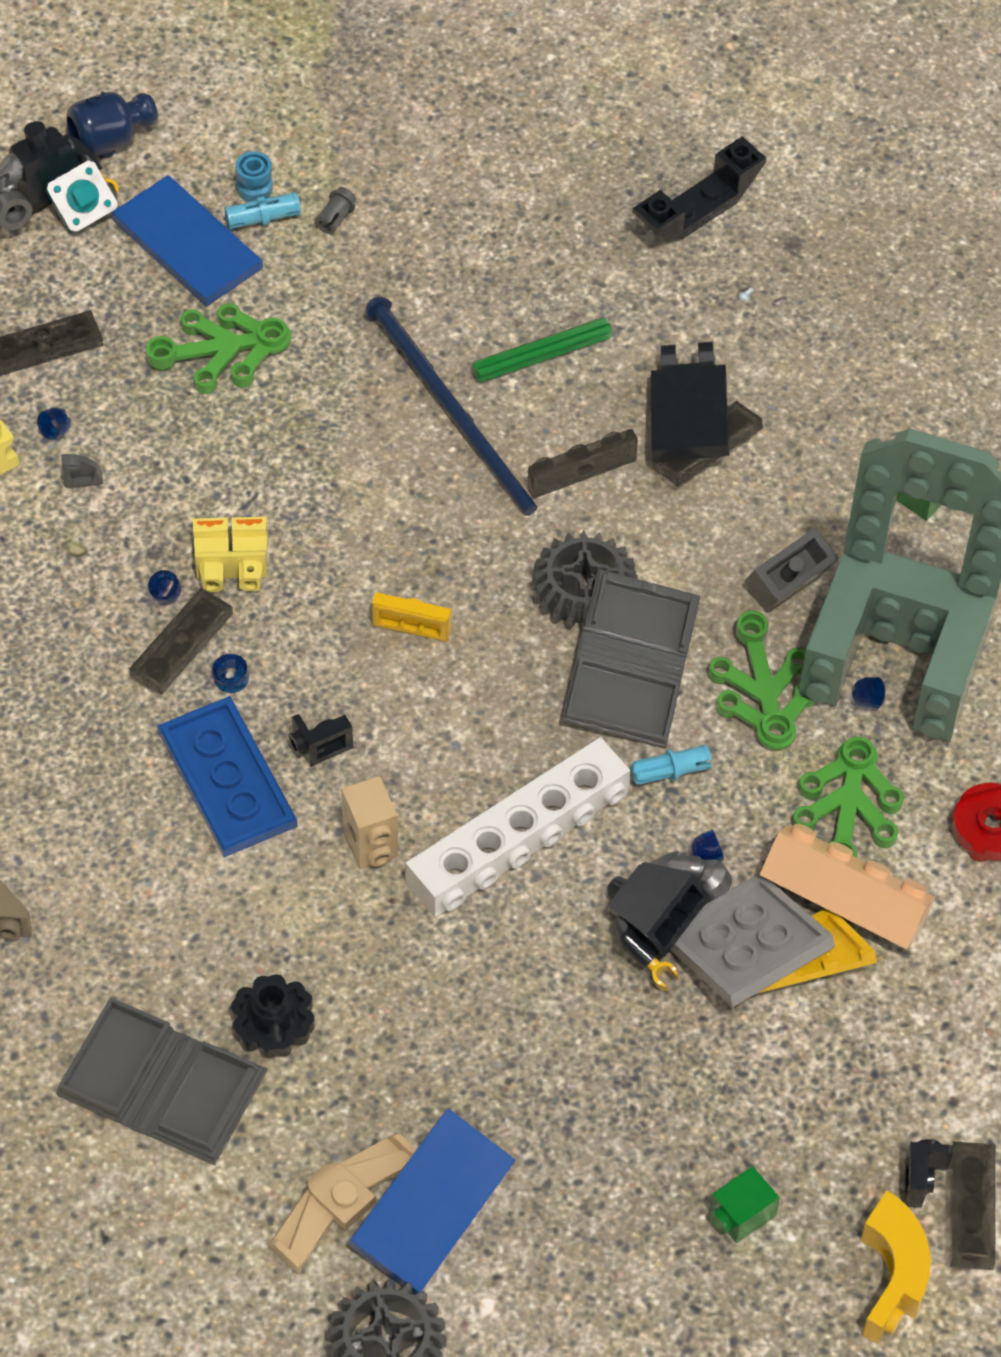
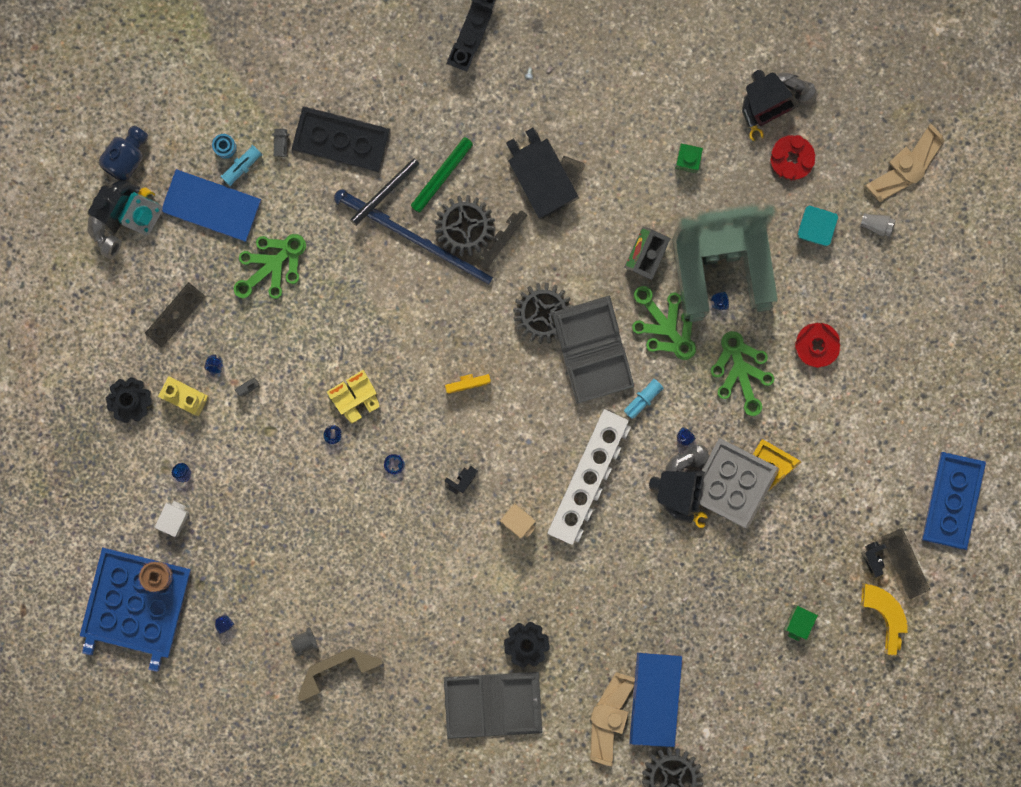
camera: 30 degrees left, 30 degrees up
(191, 626) = (360, 446): clear smoke tile -> none
(227, 776) = (426, 523): blue tile -> none
(424, 247) = (340, 139): none -> black tile
(444, 327) = (384, 192): none -> black bar
(535, 418) = (474, 224): none -> dark grey gear
(847, 884) = (766, 426): light nougat brick -> none

